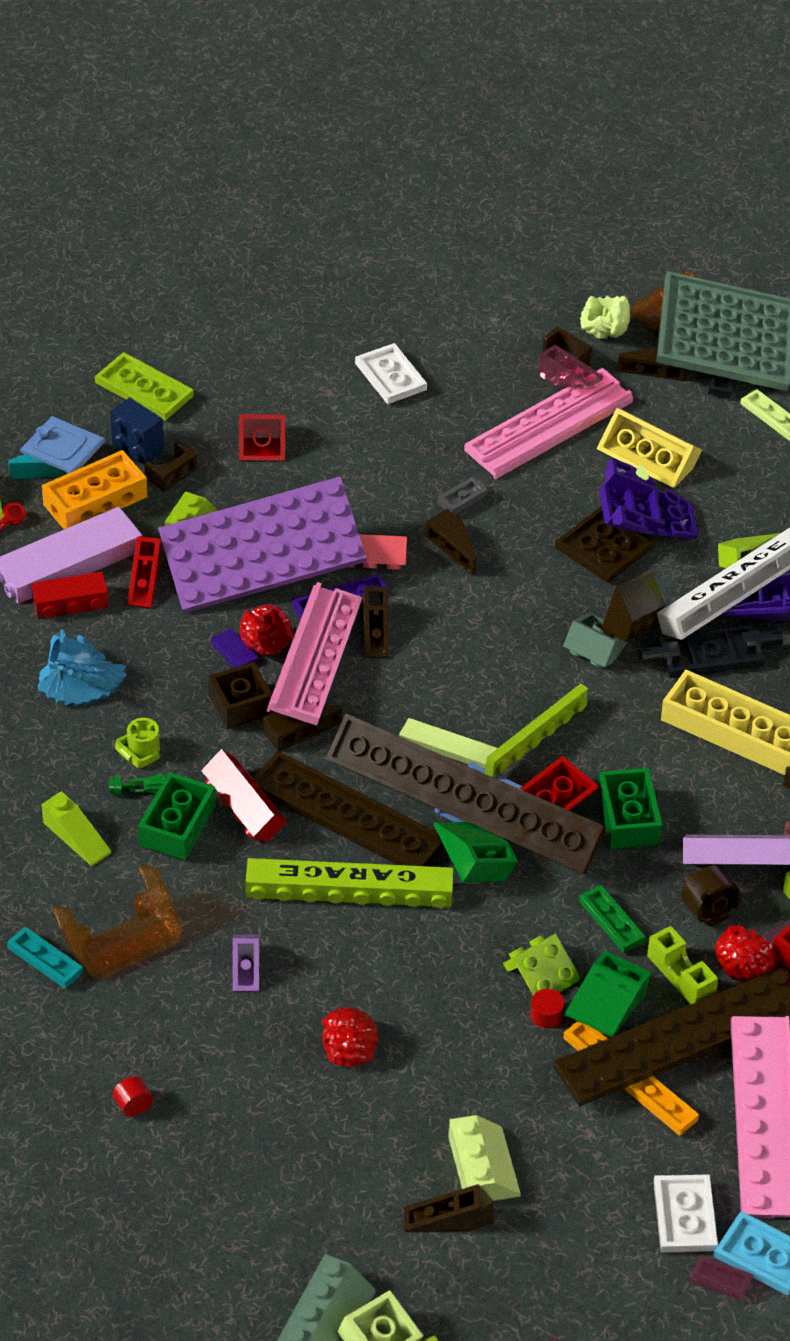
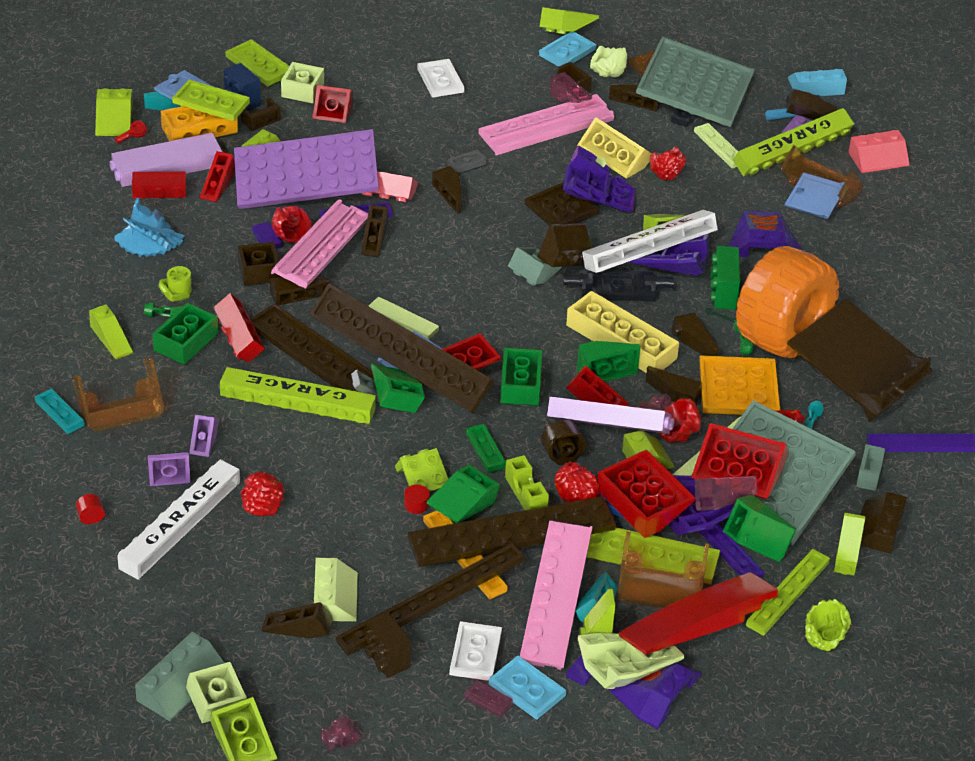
camera: 10 degrees right, 5 degrees down
(106, 460) = (211, 100): none -> lime plate
(213, 410) = (301, 82): none -> yellowish green brick
(217, 1019) = (169, 469): none -> medium lavender slope
(251, 1091) = (178, 519): none -> white brick
(434, 854) = (364, 384): none -> dark grey plate
(530, 261) = (564, 20): none -> lime slope
(537, 730) = (468, 316): lime plate -> none
(544, 305) = (567, 49): none -> medium azure plate
(577, 1228) = (387, 645): none -> dark brown brick
(608, 1151) = (437, 594): none -> dark brown plate
(725, 460) = (667, 164): none -> red hair
(726, 813) = (591, 388): none -> red slope
(731, 769) = (609, 359): none -> green slope

